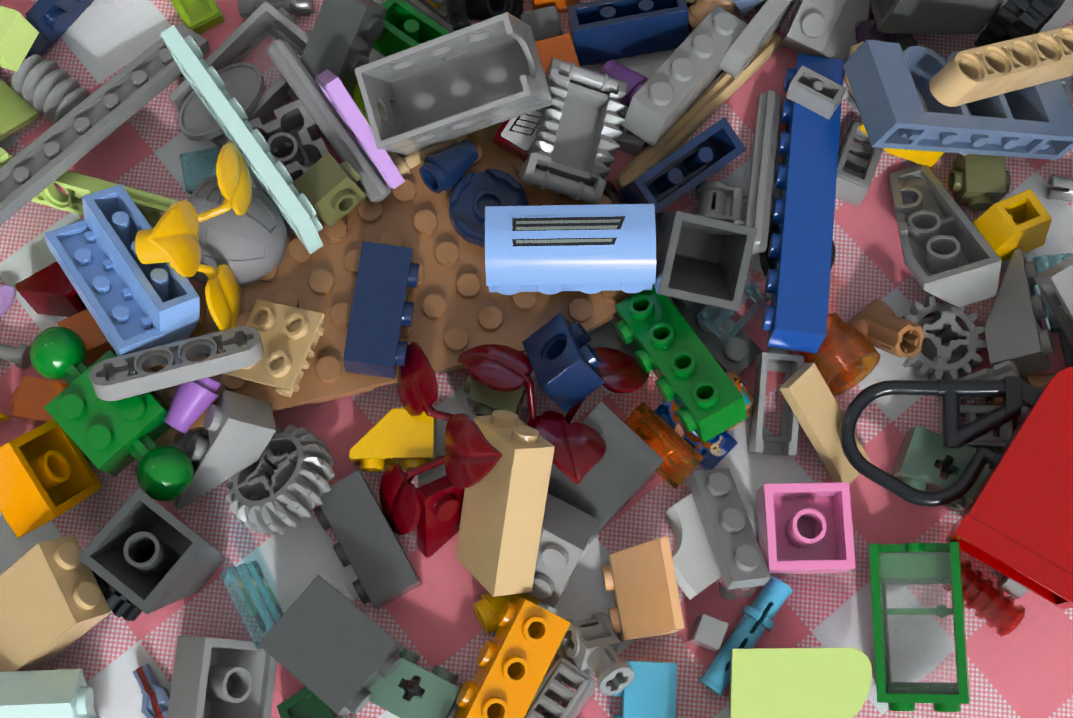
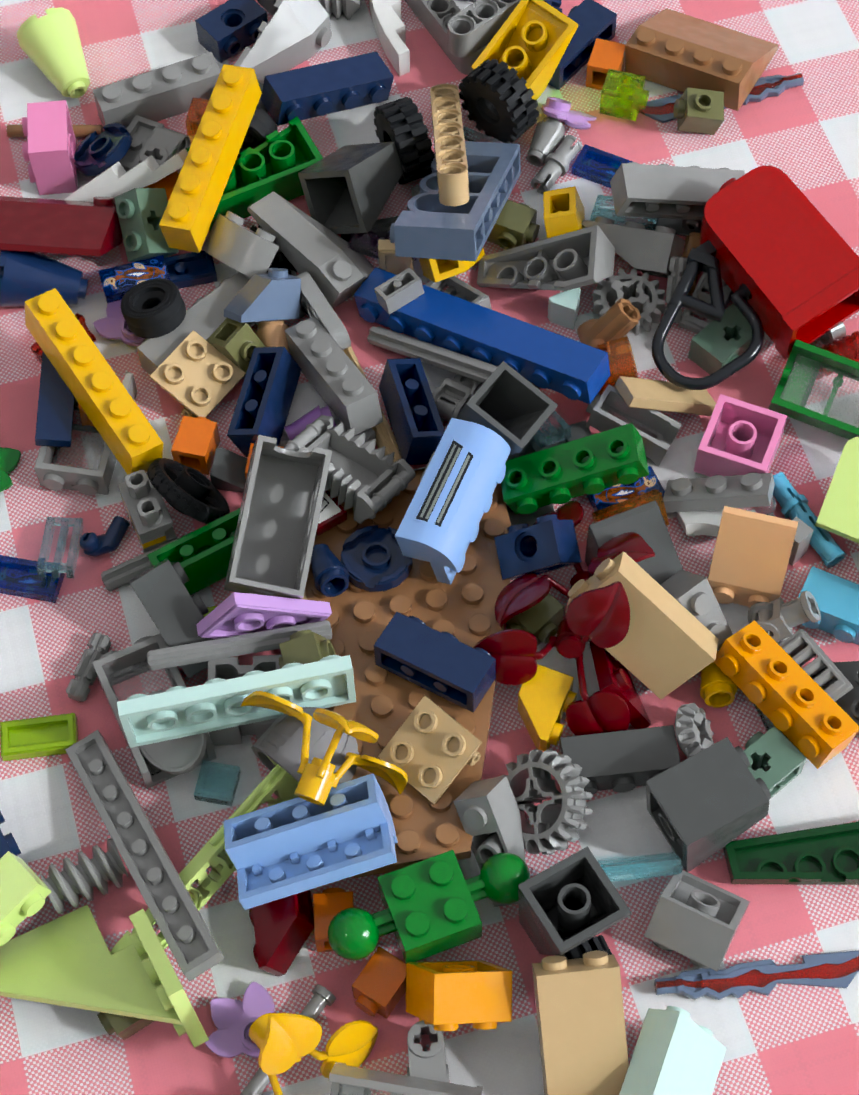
camera: 65 degrees left, 15 degrees down
(178, 367) = (414, 817): light grey beam -> none
(190, 402) = (450, 827): medium lavender cone -> none
(410, 603) = (692, 729): none -> light grey gear
(896, 277) = (564, 308): none -> light aqua slope

